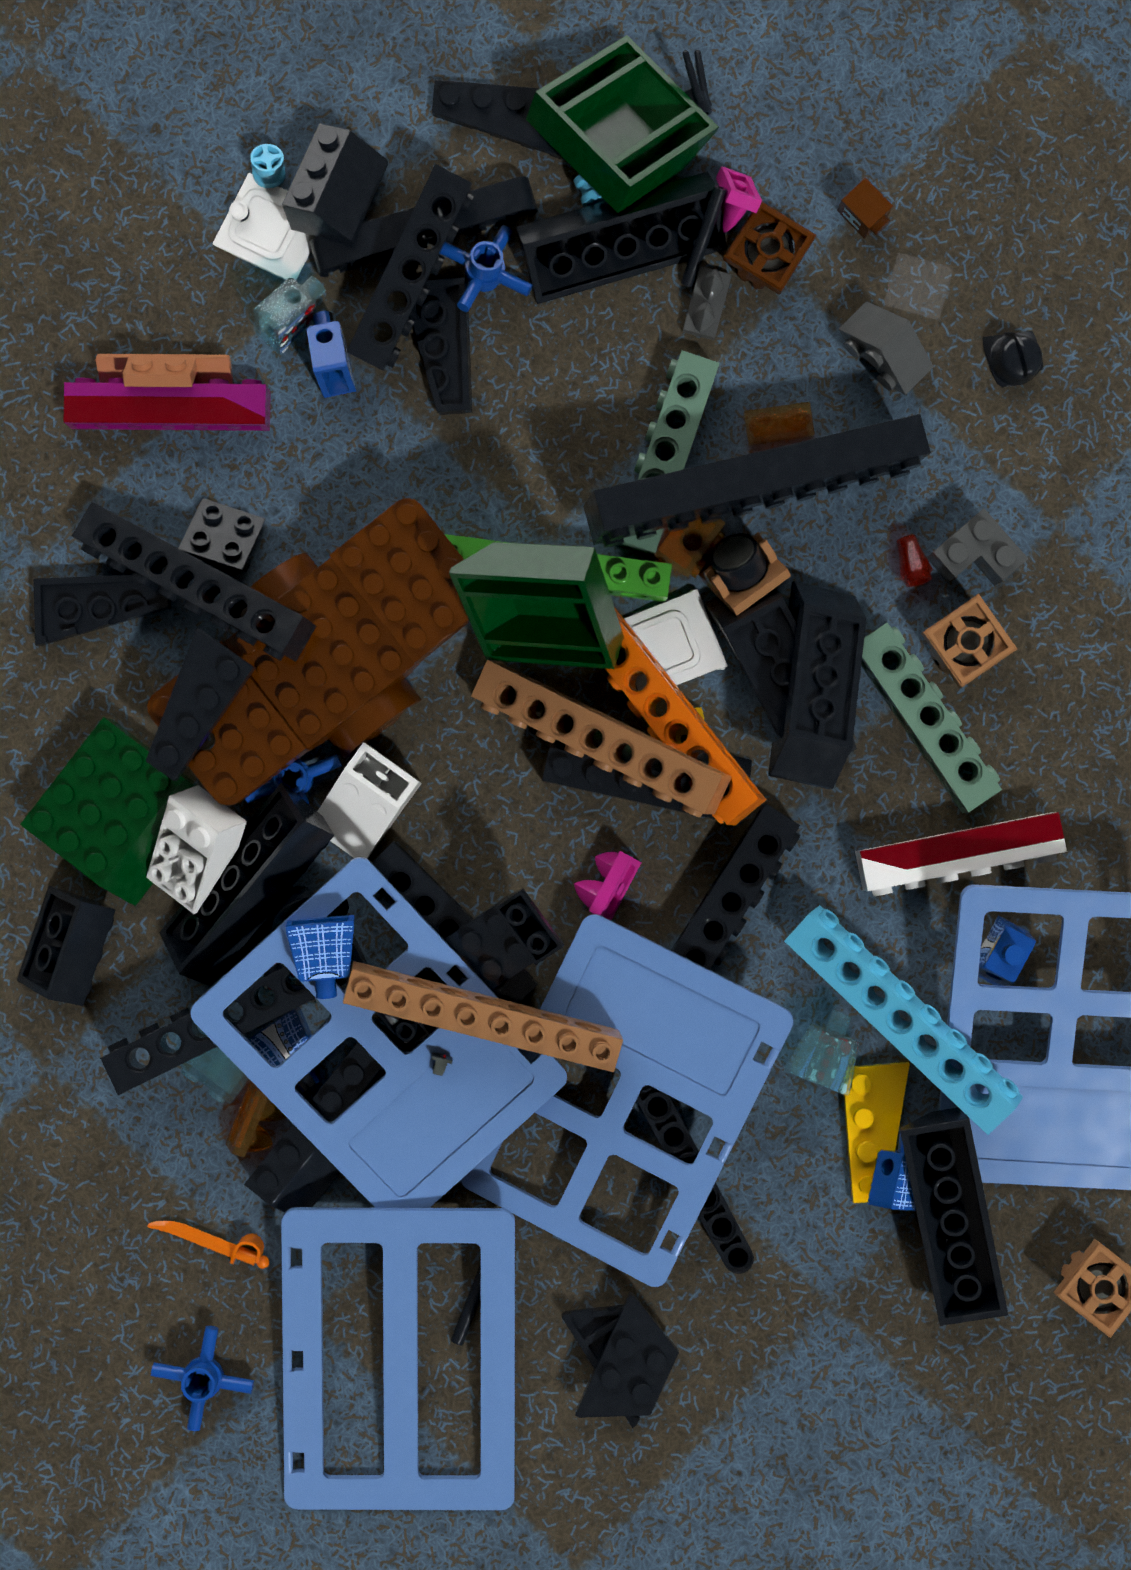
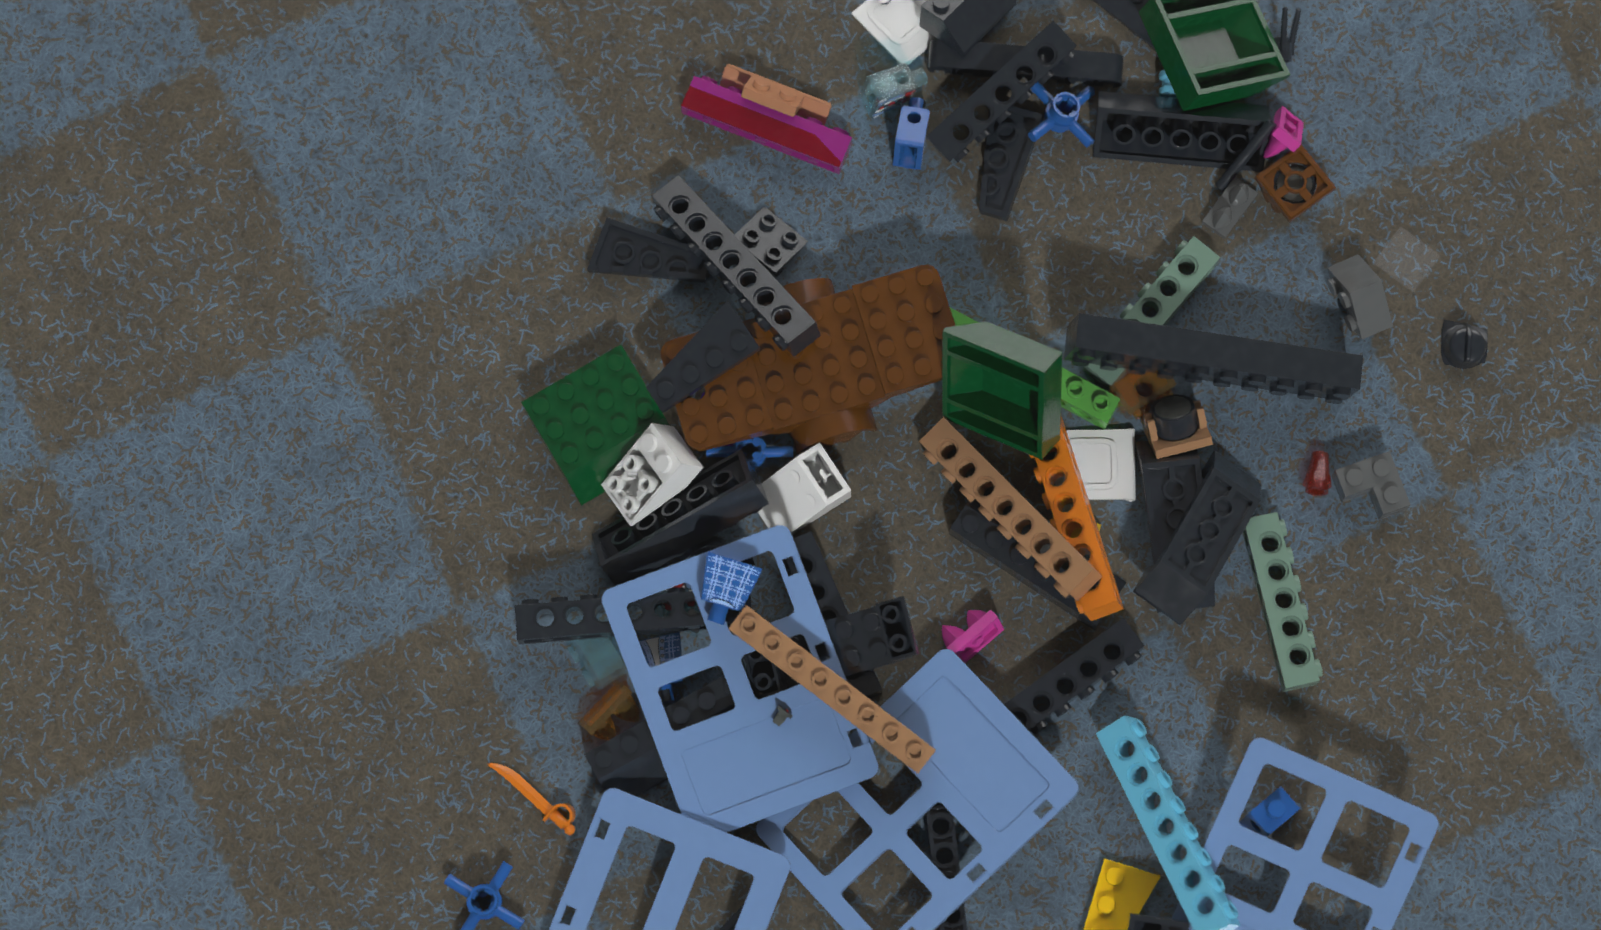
camera: 25 degrees right, 10 degrees down
(66, 946) = (515, 513): black slope -> none
(779, 423) = (1251, 323): clear orange tile -> none
(826, 1055) = (1094, 840): clear light blue torso -> none
(865, 209) = (1385, 182): reddish brown brick -> none
(960, 852) = (1269, 720): brick -> none
(967, 641) = (1337, 553): medium nougat piece -> none

